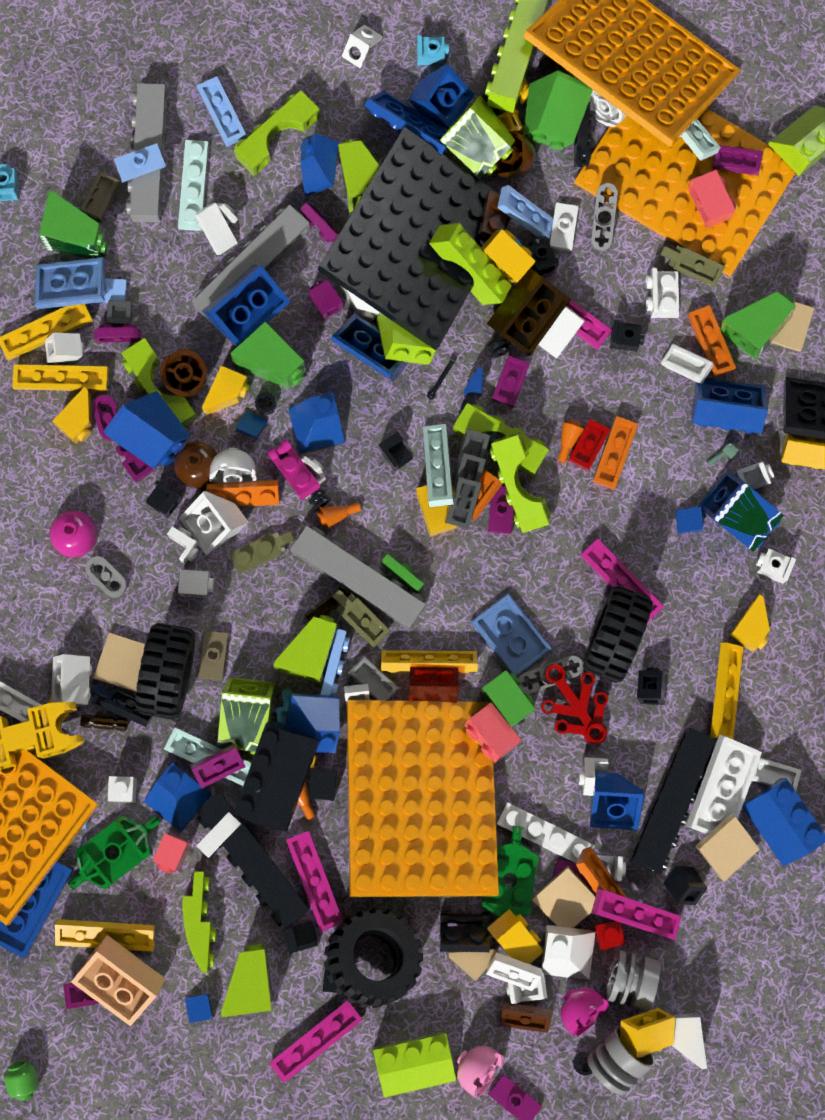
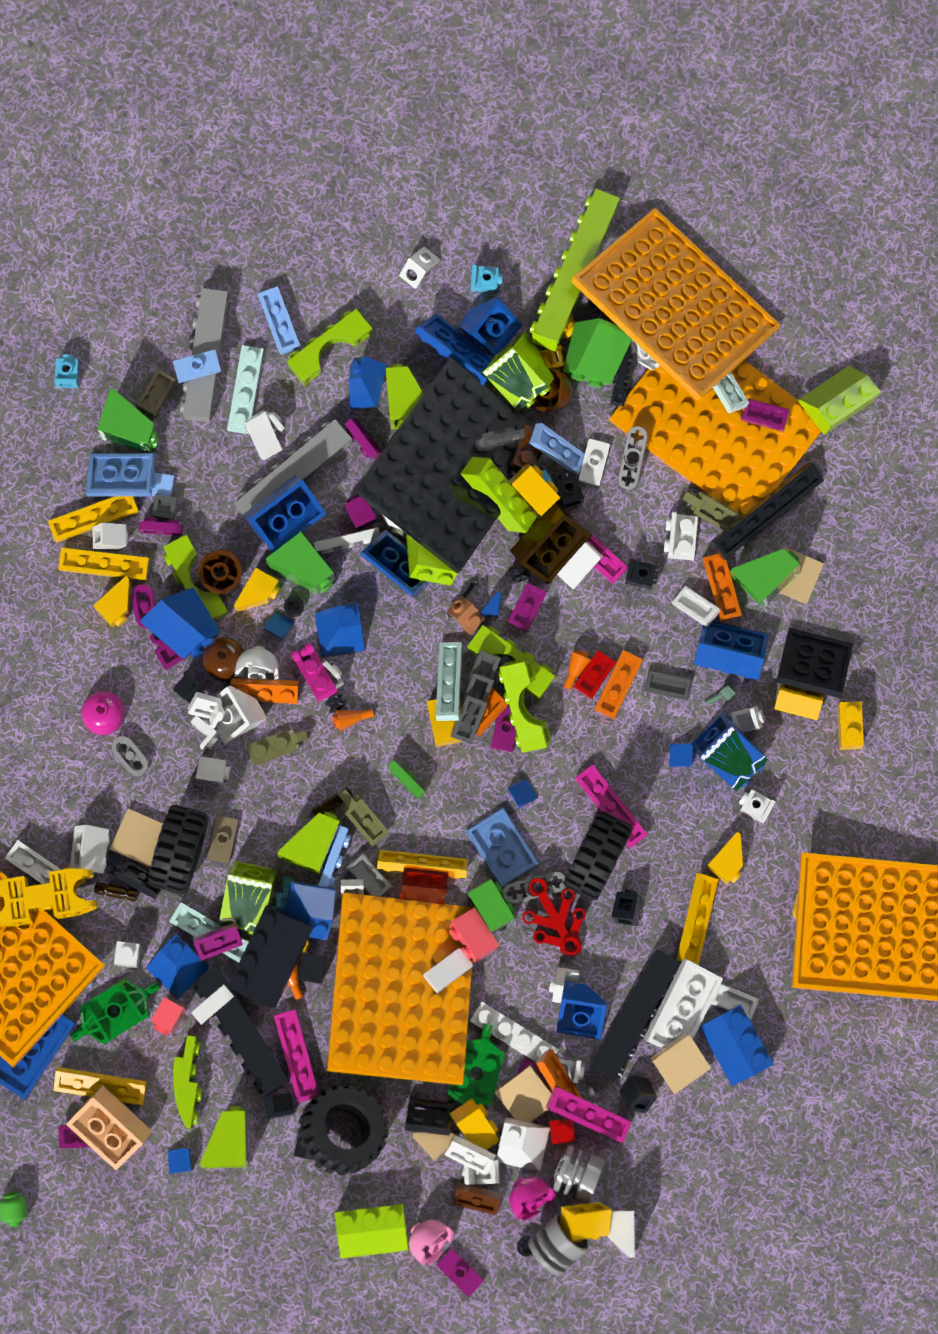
camera: 10 degrees right, 0 degrees up
(183, 517) = (207, 707): none -> white bracket
(315, 329) = (347, 540): none -> white plate
(316, 1041) = (283, 1201): dark pink plate -> none
(357, 577) = (365, 780): light grey brick -> none
(395, 451) = (411, 664): black panel -> none
(448, 395) = (466, 614): none -> nougat bracket
(469, 773) = (448, 970): none -> white tile
(472, 204) = (507, 436): none -> clear plate
(526, 576) = (522, 793): none -> blue slope
(666, 448) = (667, 685): none -> dark grey tile
(712, 198) = (736, 450): coral brick -> none
(750, 258) = (767, 510): none -> black plate

